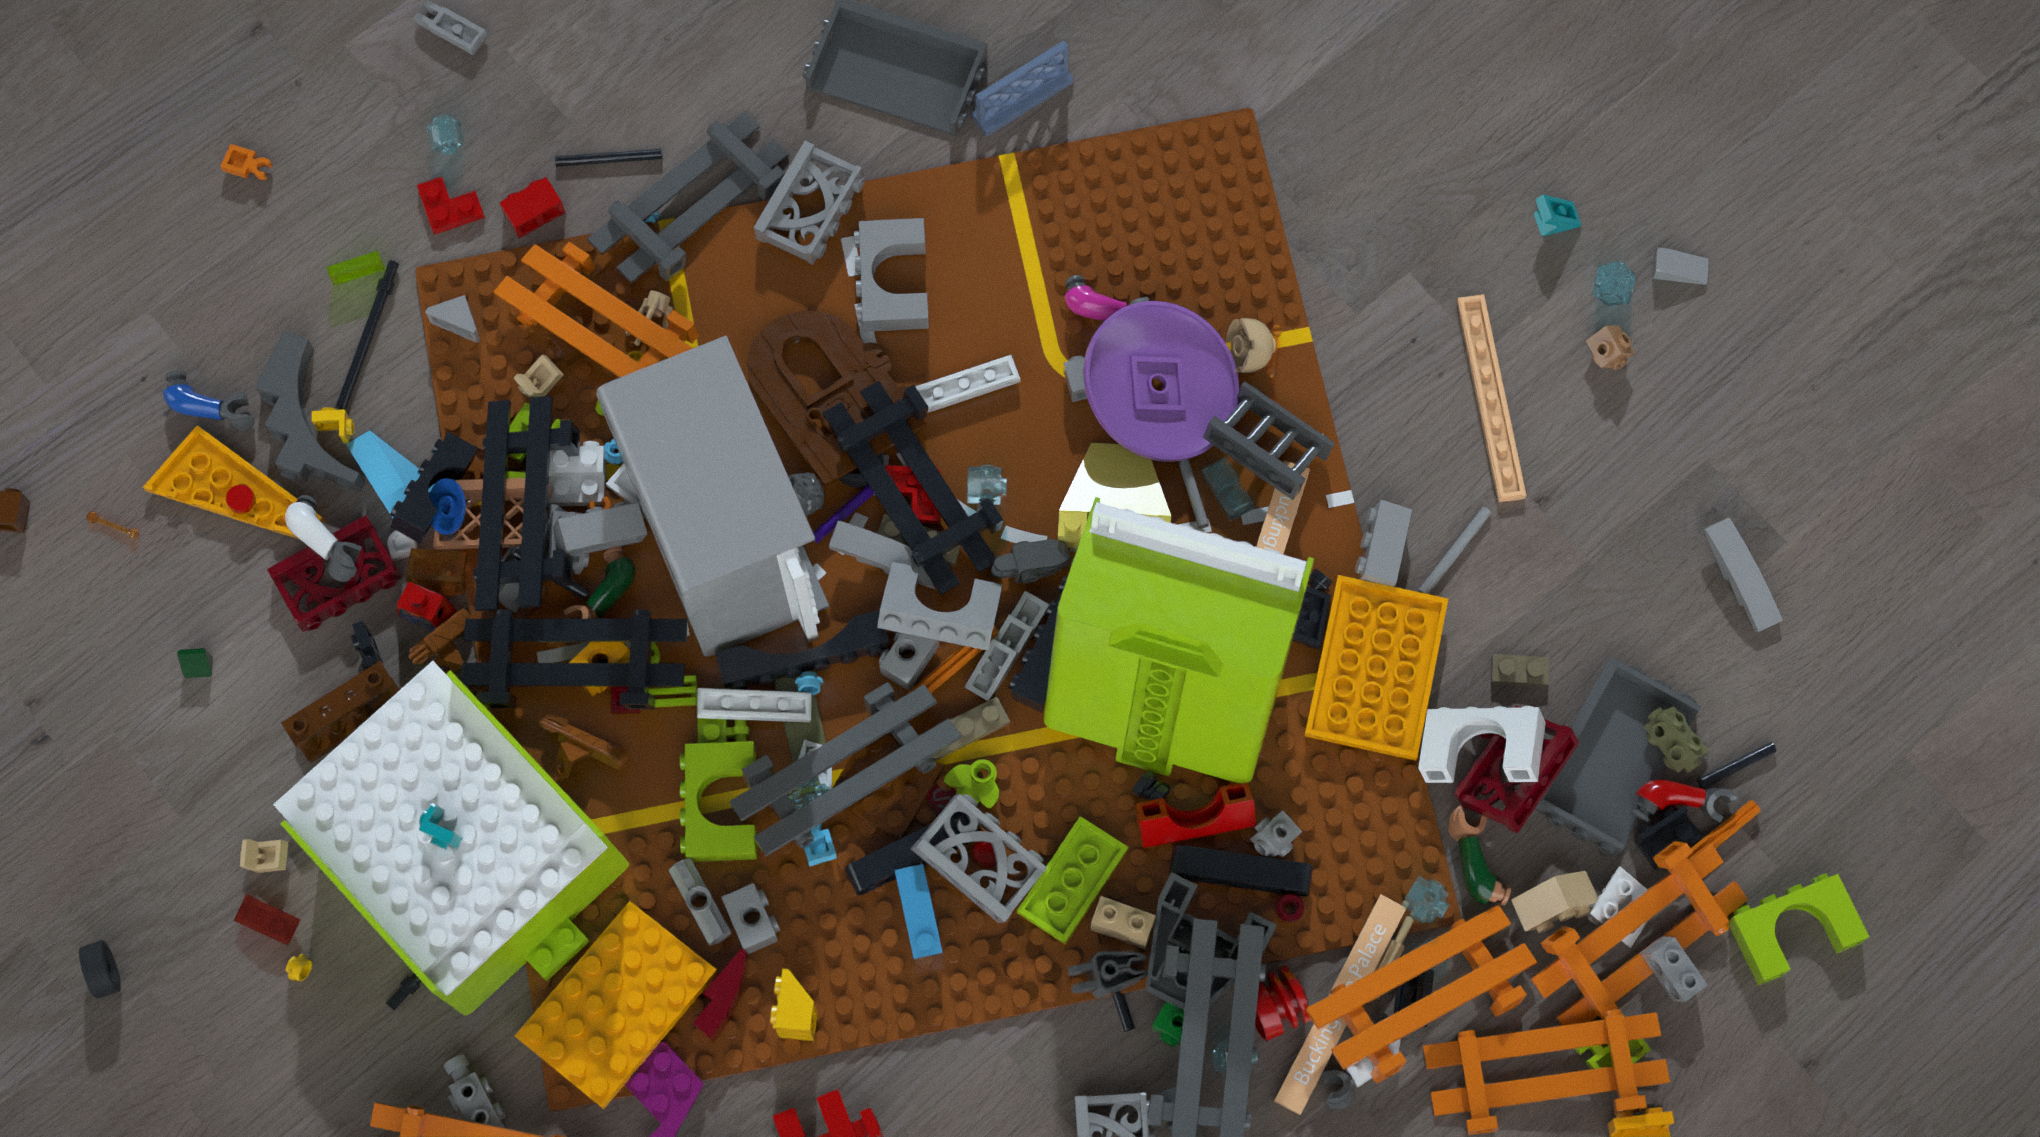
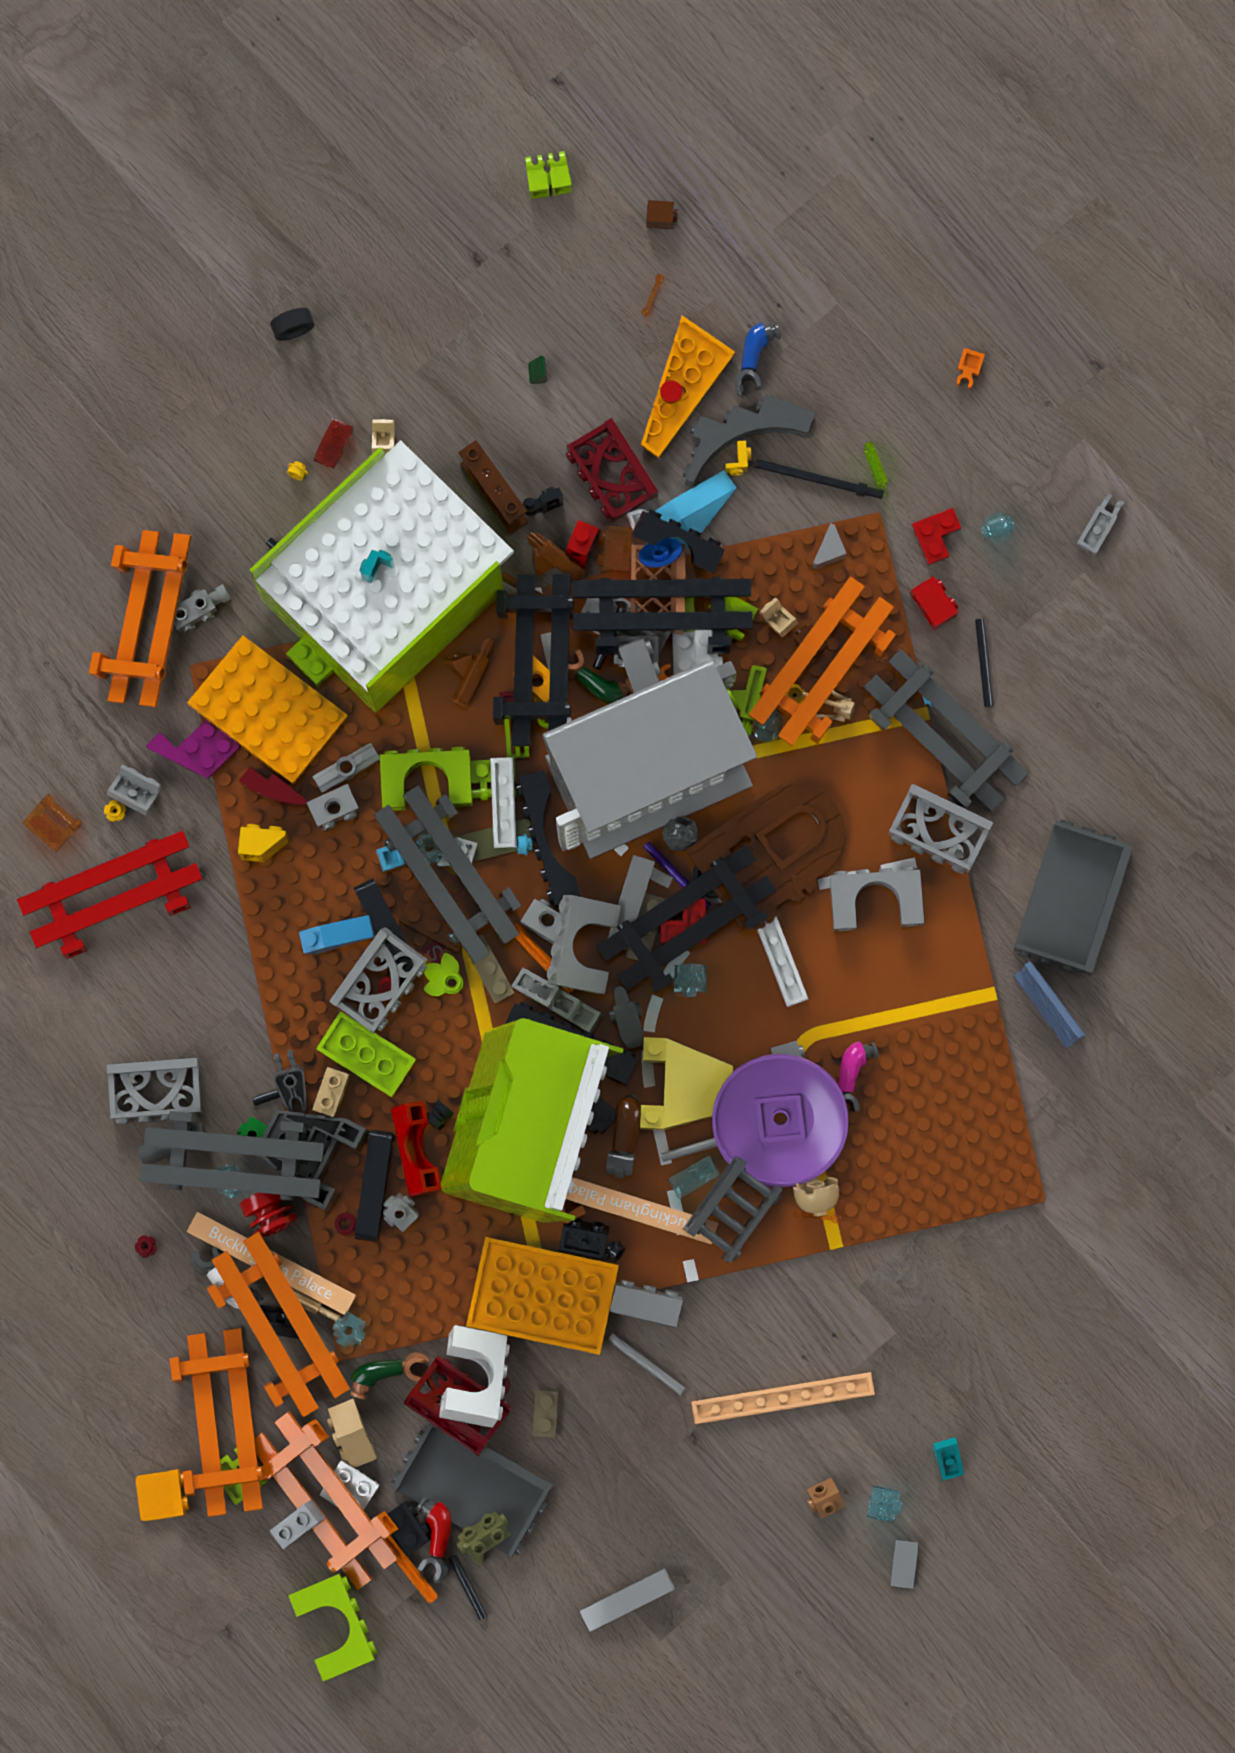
camera: 90 degrees right, 10 degrees up
(304, 524) = (645, 443): piece -> none

